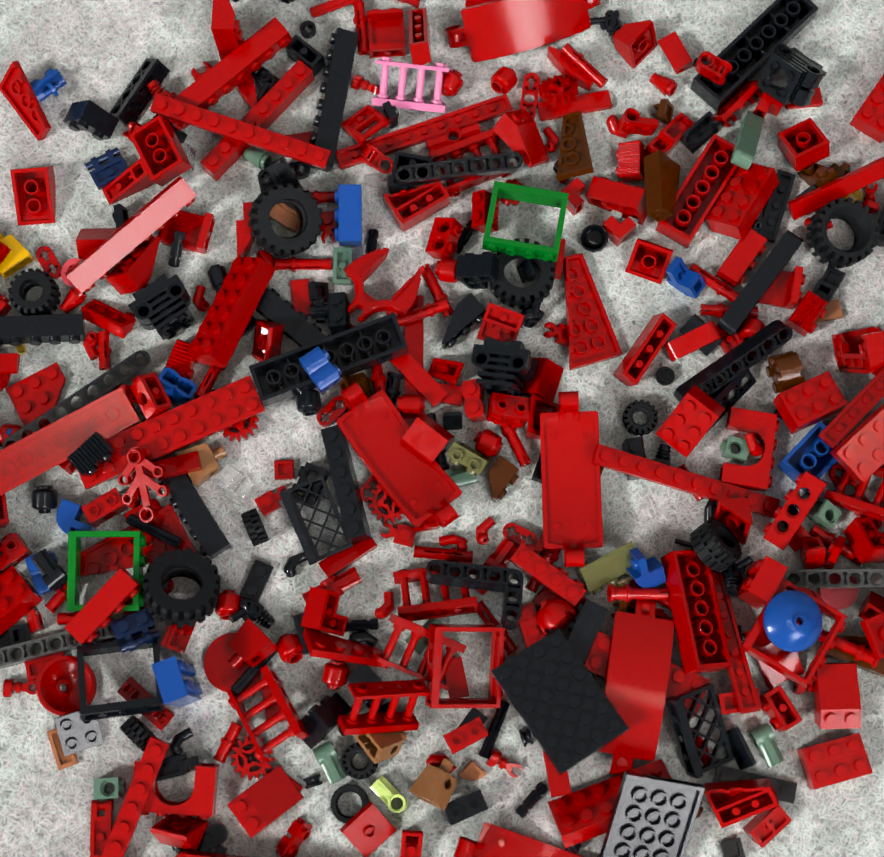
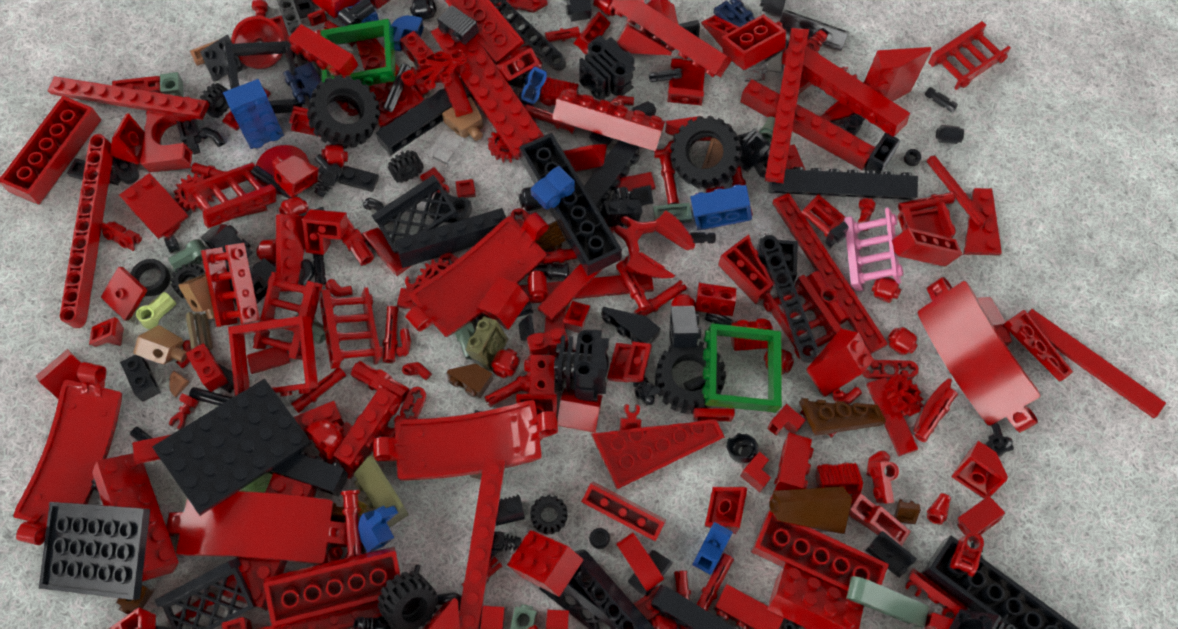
camera: 80 degrees right, 10 degrees down
(90, 344) = (565, 24): red arm -> none
(375, 159) = (787, 224): red piece -> none
(419, 749) = (202, 331): none -> dark tan tile
(482, 583) = (358, 366): black beam -> none

